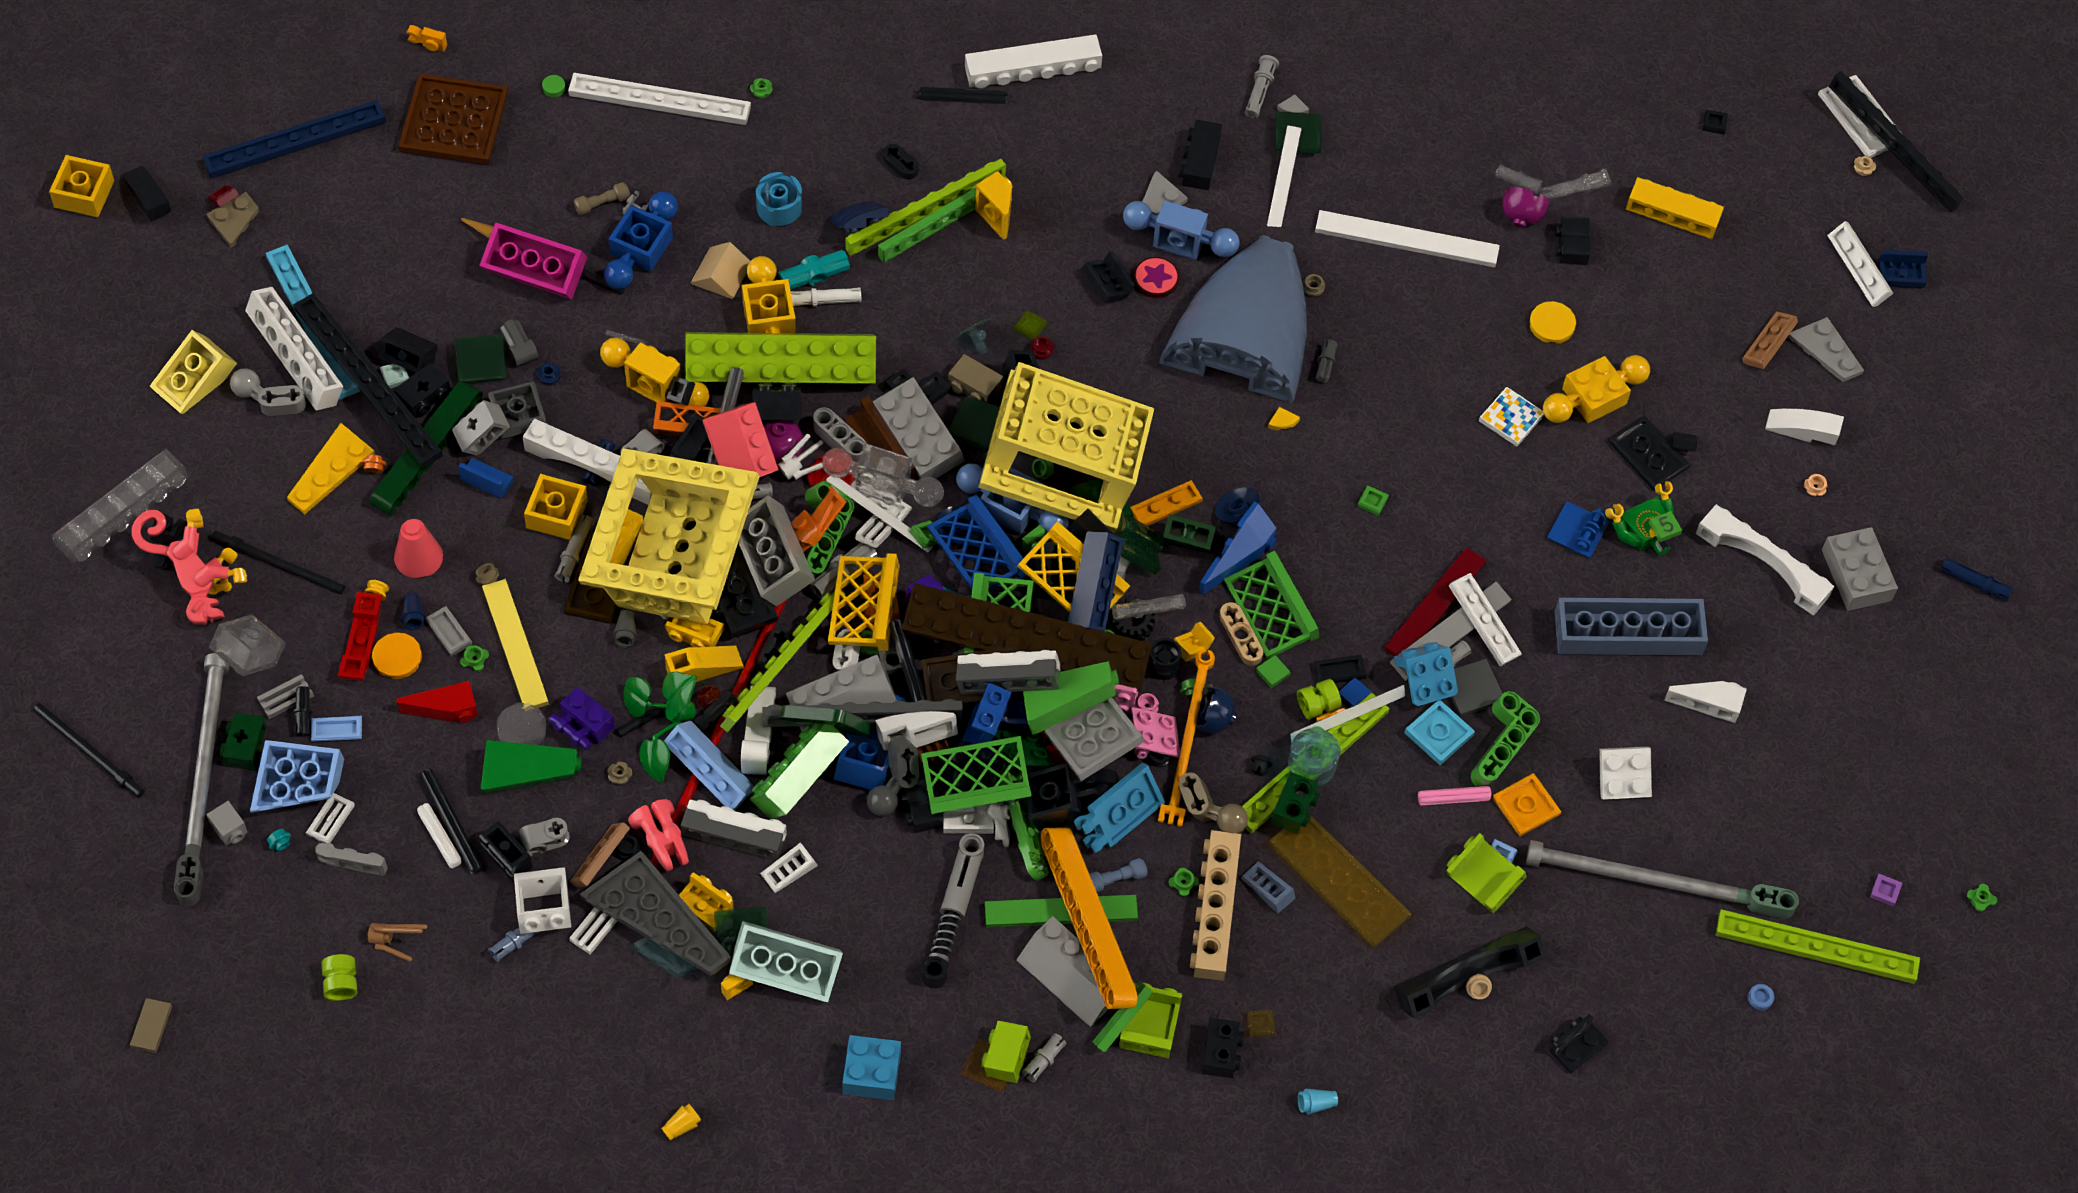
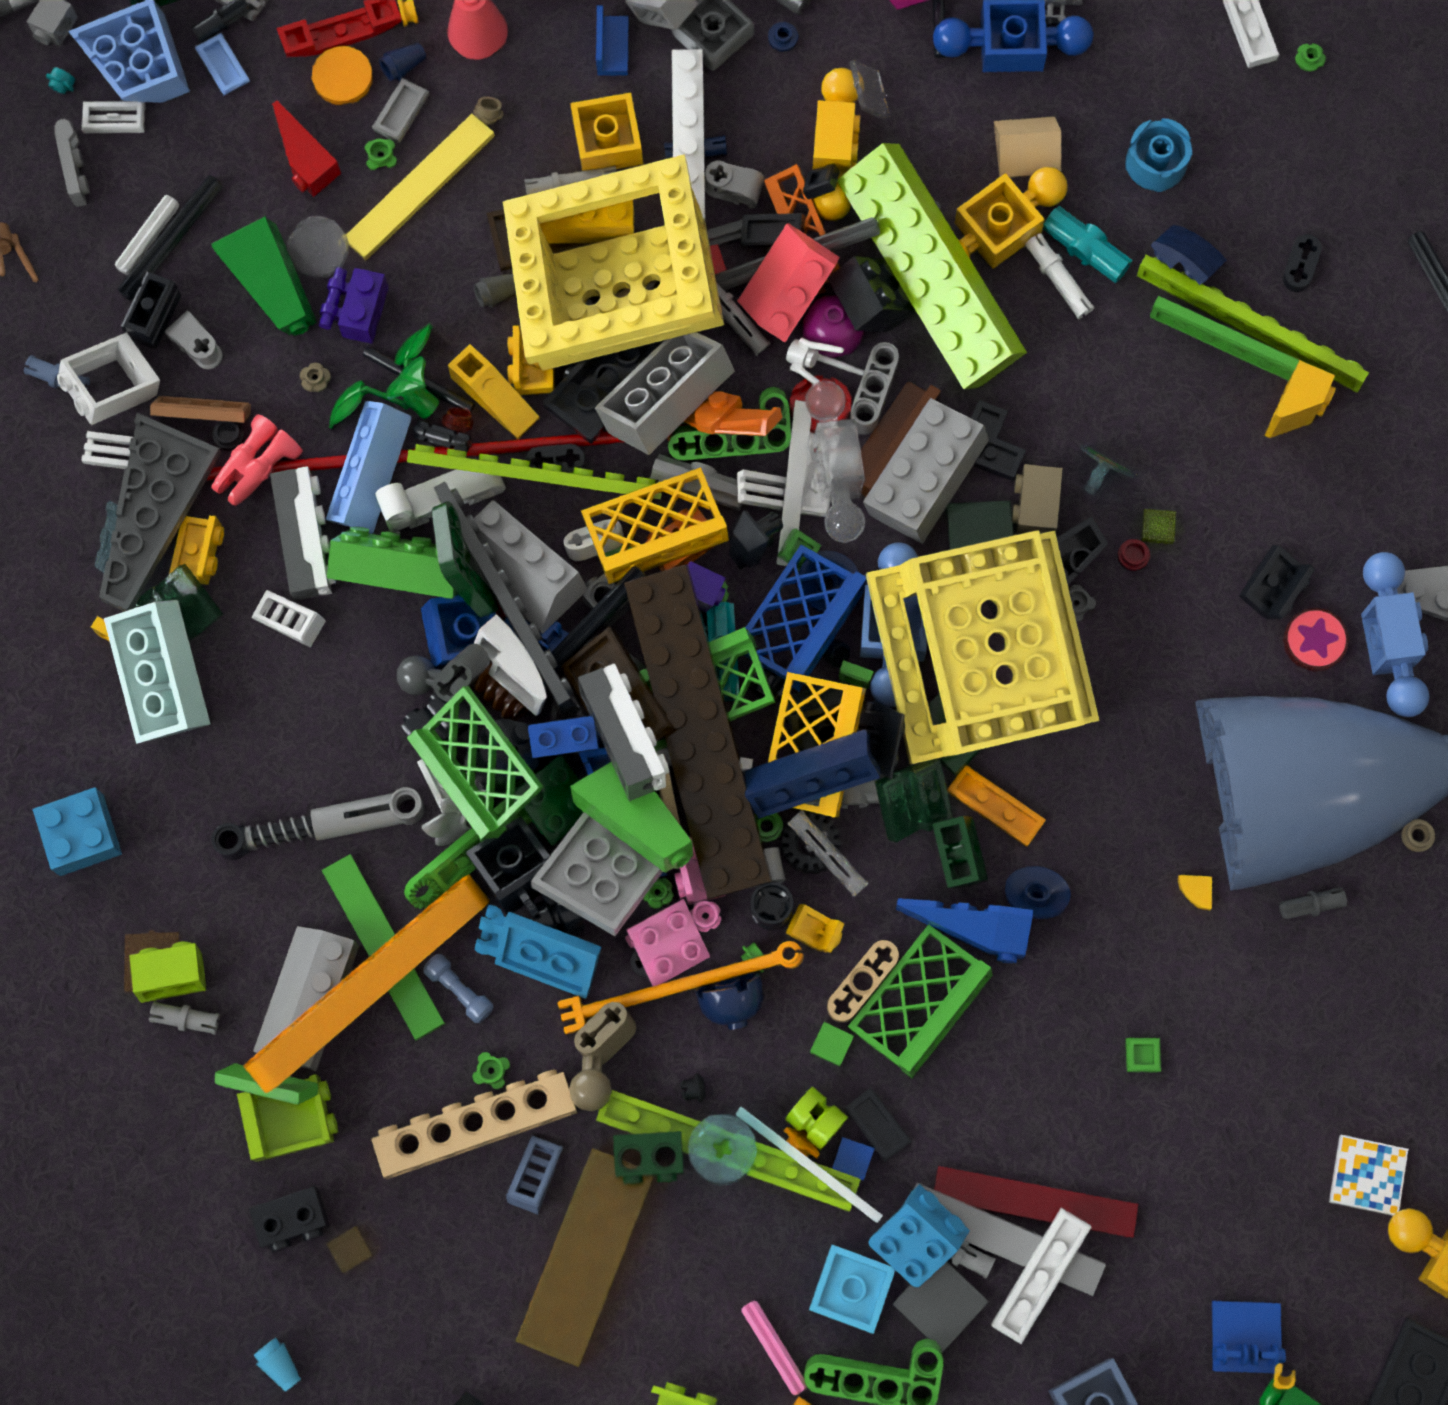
camera: 70 degrees right, 15 degrees up
(909, 551) = (751, 538): none -> black connector

